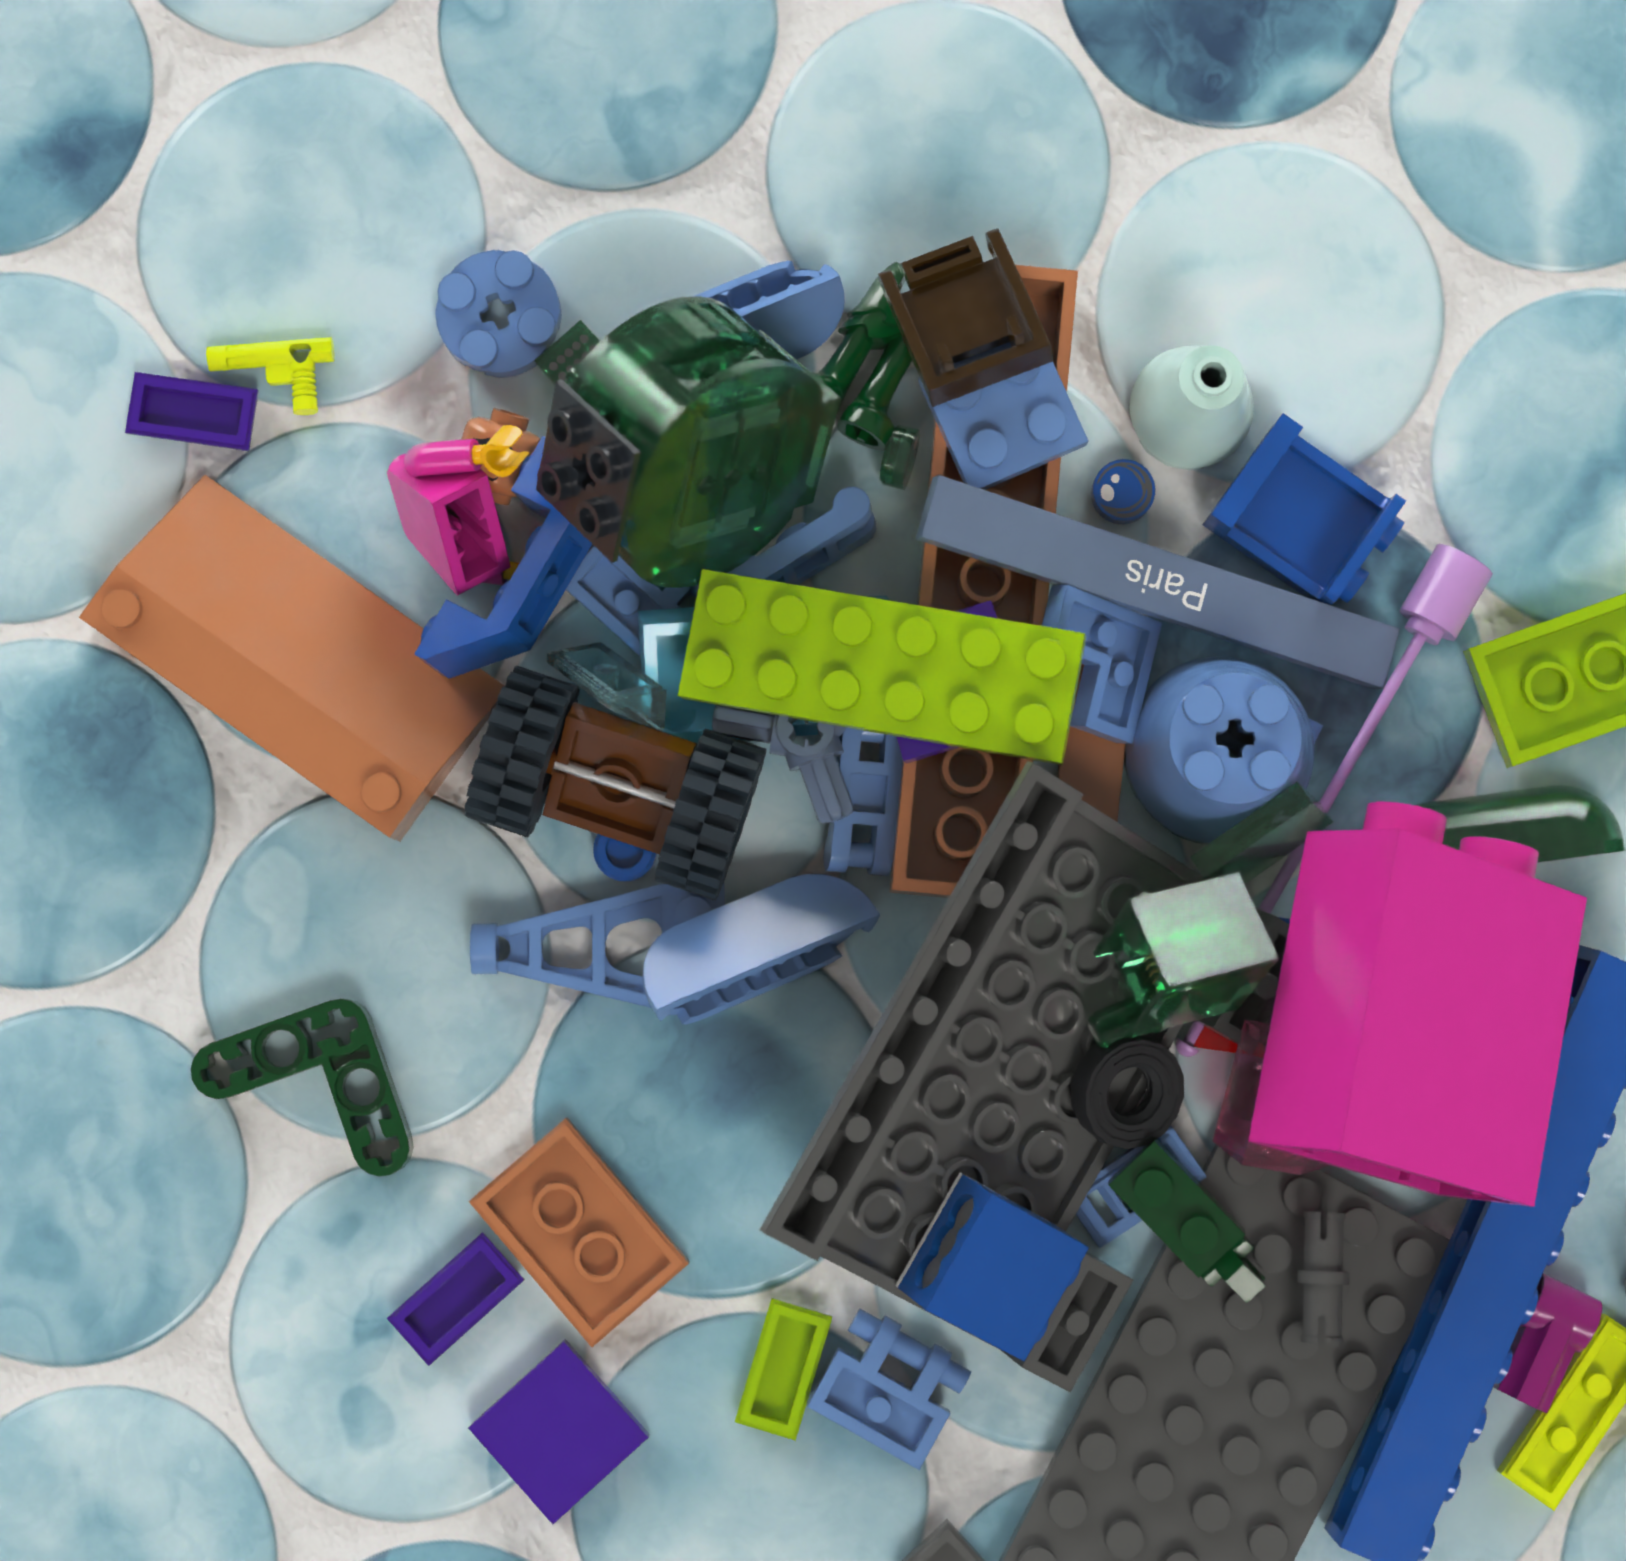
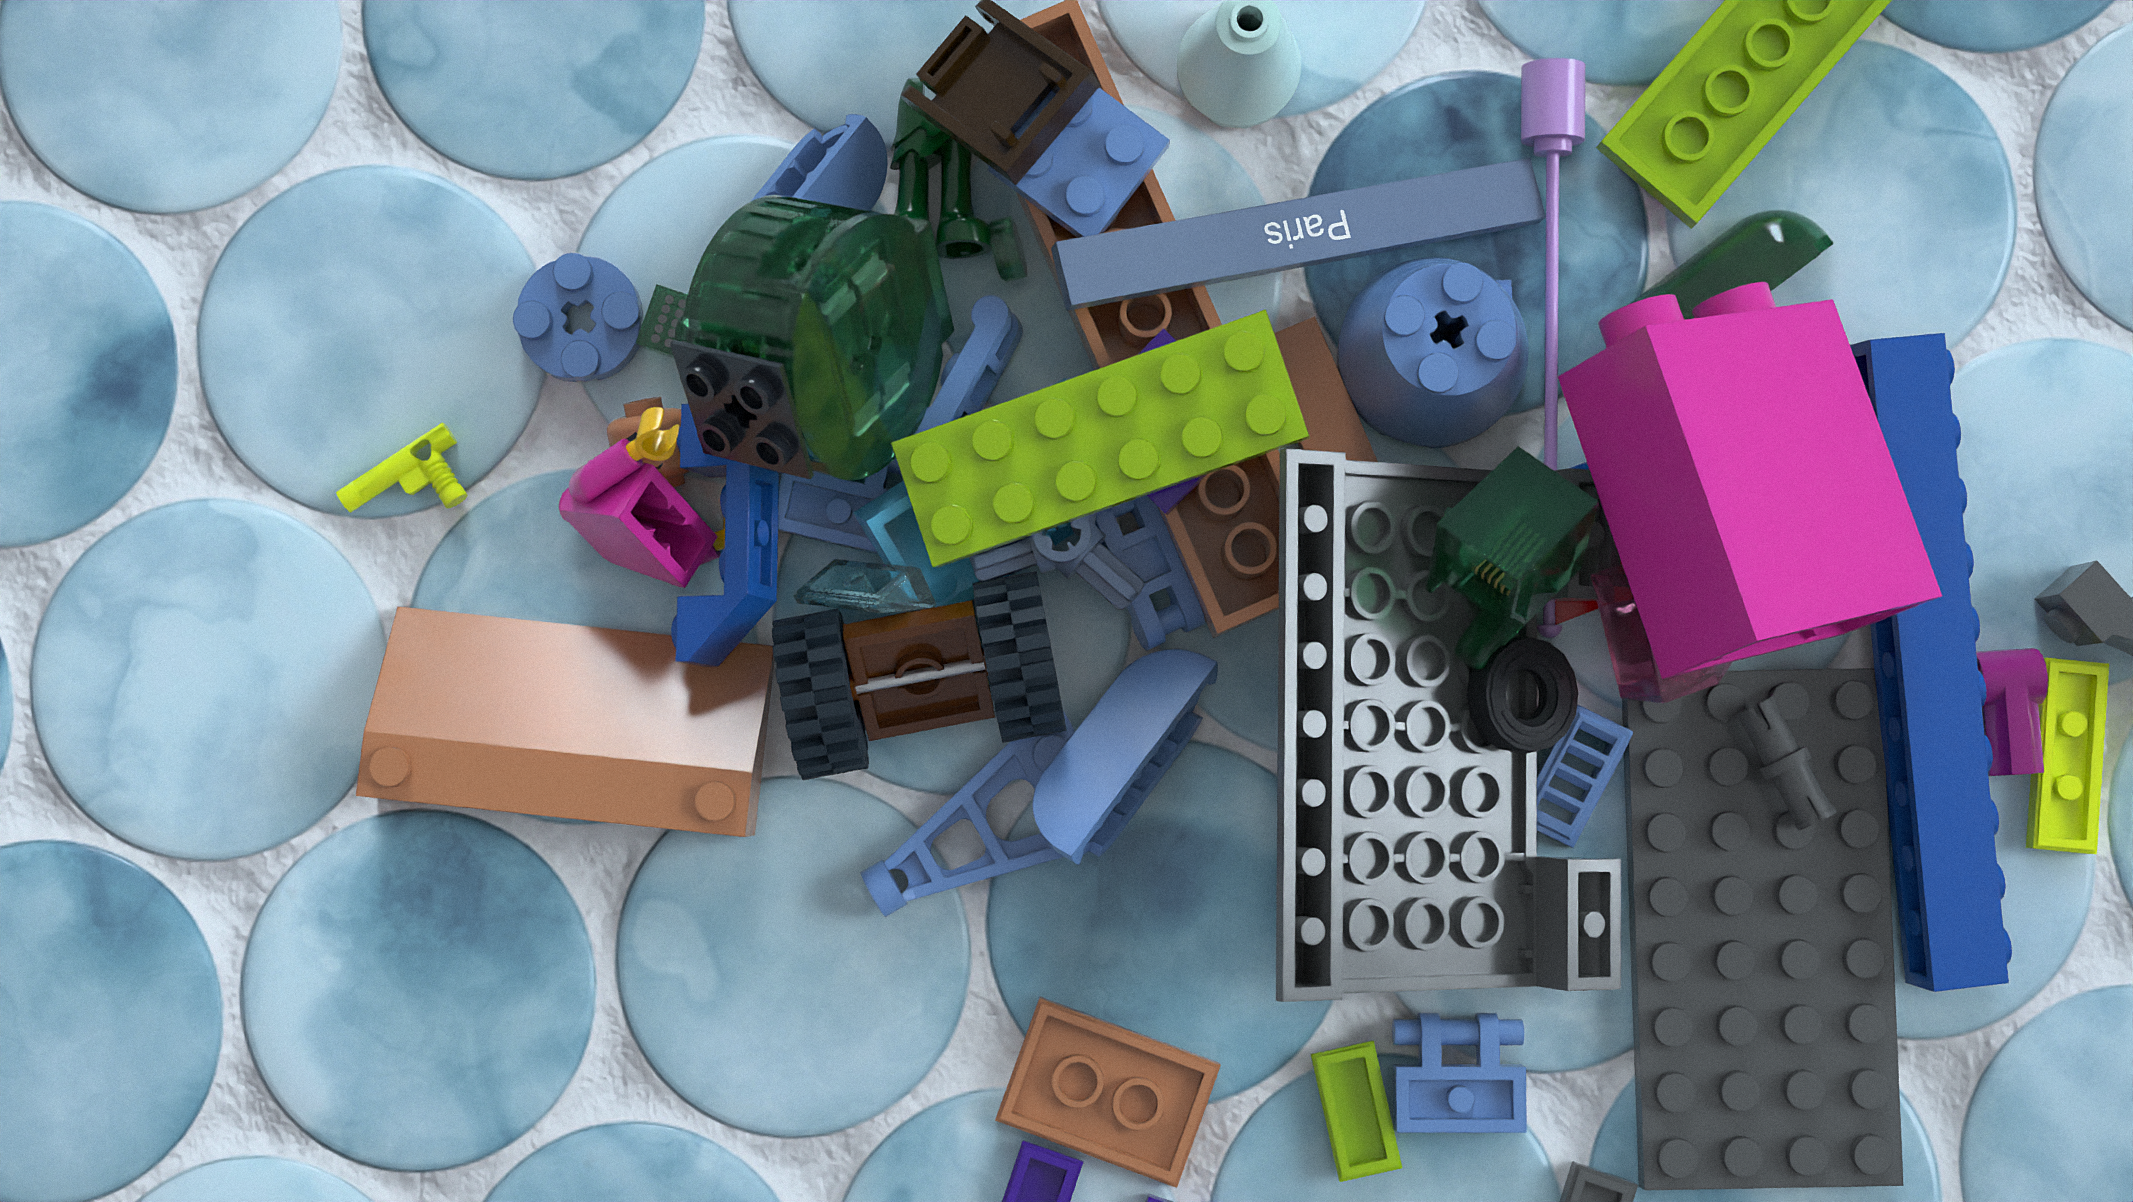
camera: 25 degrees left, 0 degrees up
(191, 411) = (354, 556): dark purple tile -> none
(337, 1062) = (810, 1063): dark green beam -> none
(622, 860) = (960, 742): blue tile -> none
(992, 1267) = (1493, 918): blue piece -> none
(1114, 658) = (1301, 323): medium blue plate -> none
(1123, 491) = (1220, 171): blue tile -> none
(1188, 1219) = (1639, 778): dark green hinge -> none
(1263, 836) = (1517, 404): clear green tile -> none
(1305, 516) = (1392, 105): blue panel -> none

